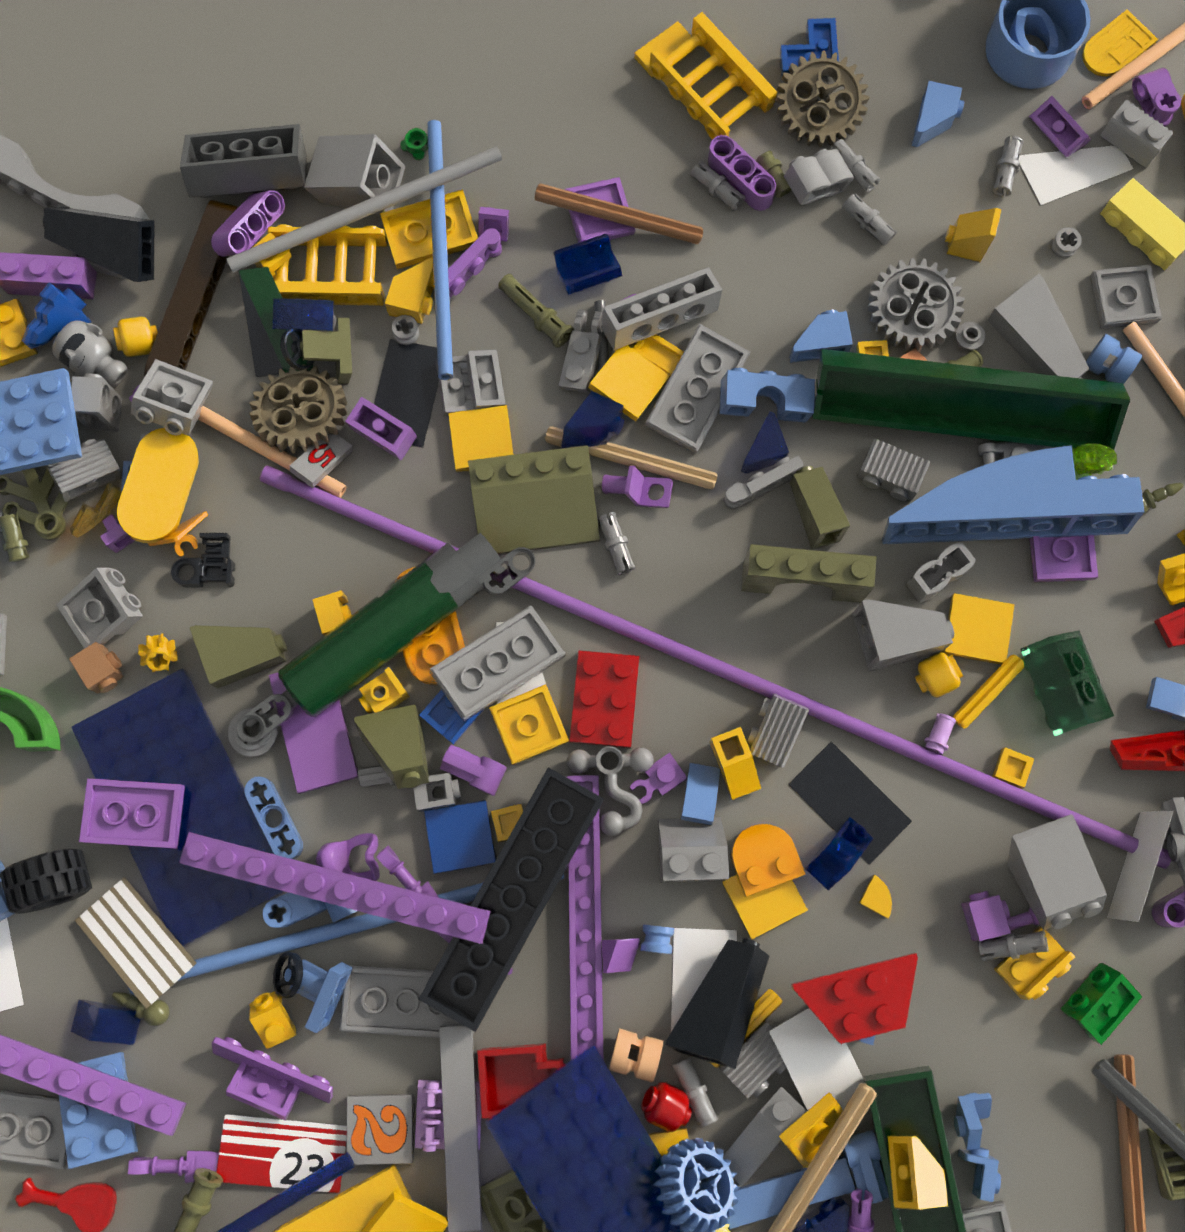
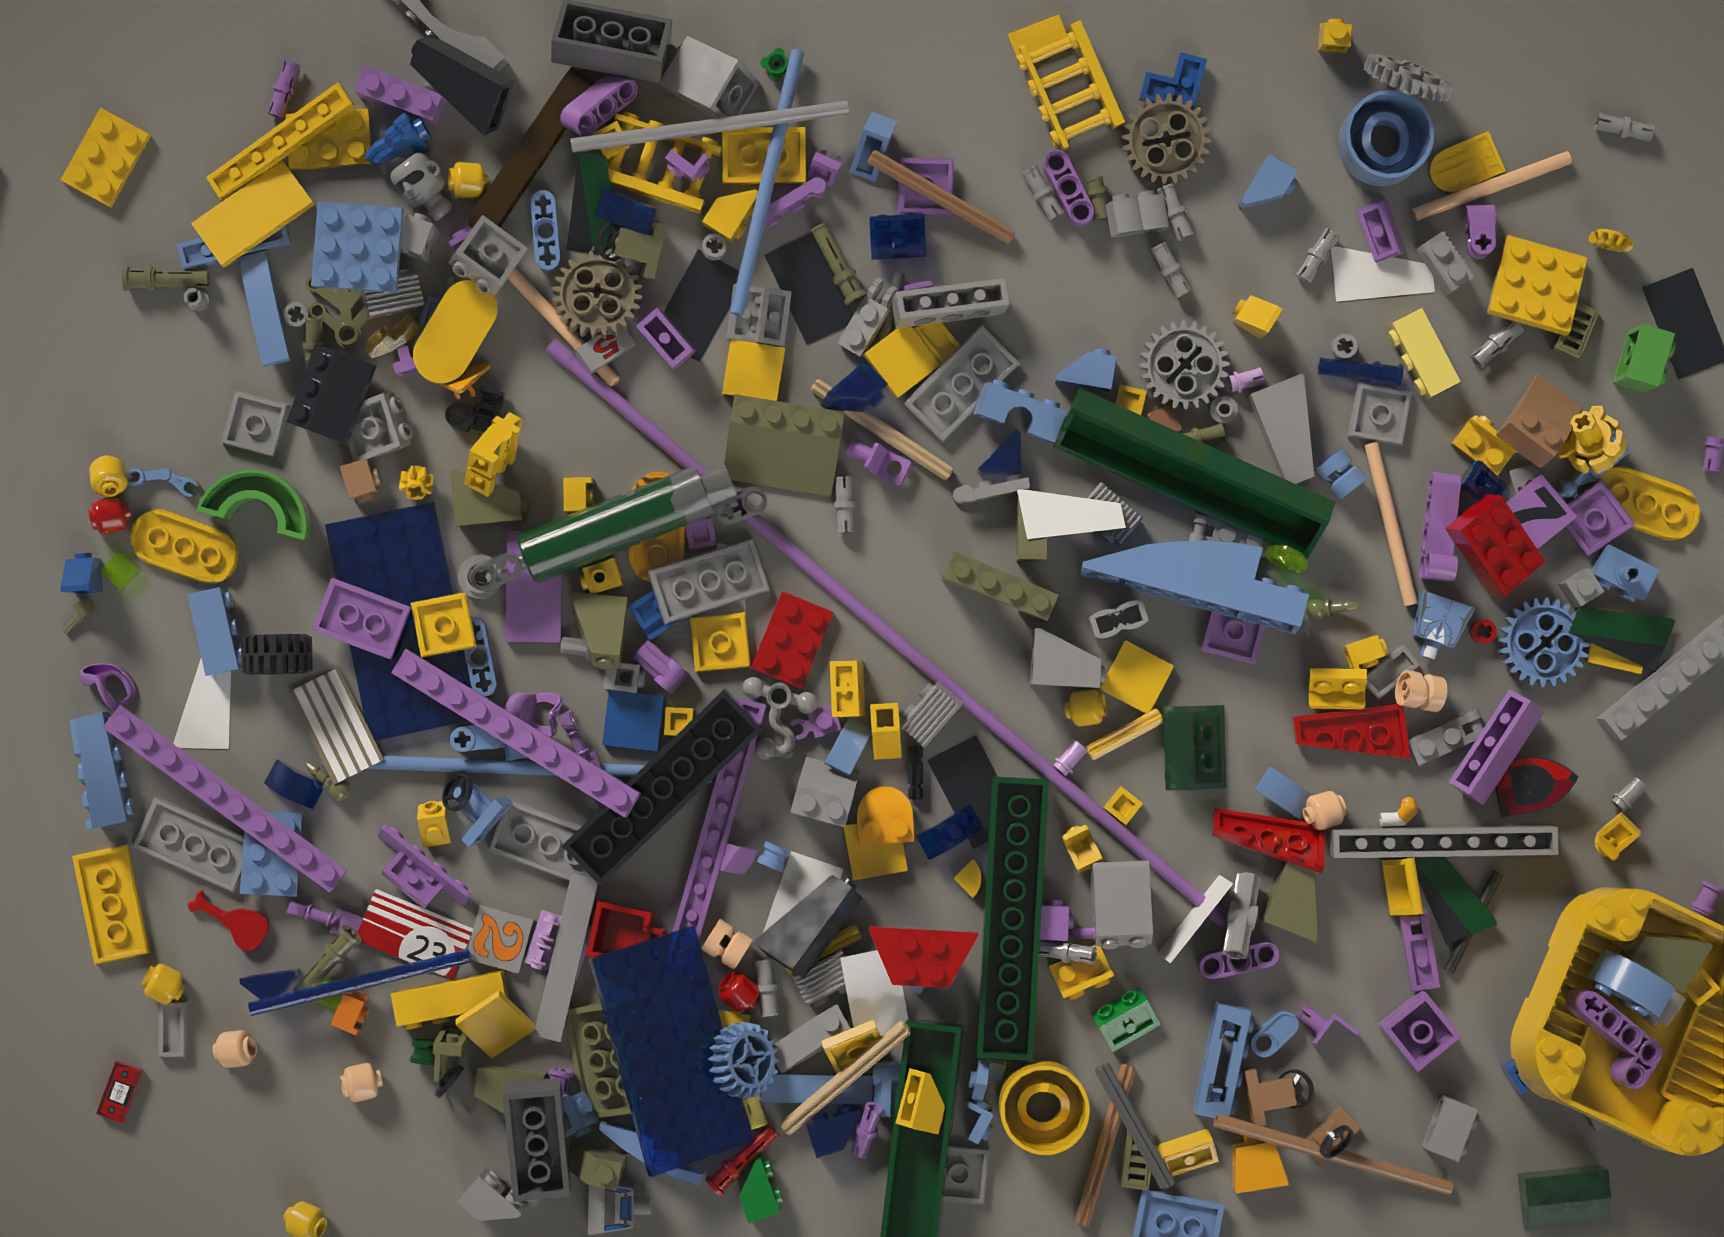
camera: 10 degrees right, 10 degrees up
(42, 586) = (331, 394): none -> black slope
(225, 794) = (444, 625): none -> yellow tile
(230, 593) = (493, 453): none -> yellow hips
(231, 352) = (537, 211): none -> medium blue beam
(350, 256) = (679, 166): none -> medium lavender bracket
(475, 618) = (701, 534): none -> medium lavender tile
(522, 350) = (815, 299): none -> black sticker
(533, 172) = (875, 137): none -> medium blue slope
(679, 731) = (847, 688): none -> yellow hinge
(781, 800) = (915, 772): none -> black axle
(845, 481) = (1063, 515): none -> white sticker
(942, 931) = (1012, 918): none -> dark green brick
(977, 303) = (1245, 380): none -> lavender pin
(987, 827) = (1081, 848): none -> yellow bracket
(1087, 1142) = (1043, 1136): none -> yellow piece
(1105, 257) = (1374, 372): none -> clear blue pin

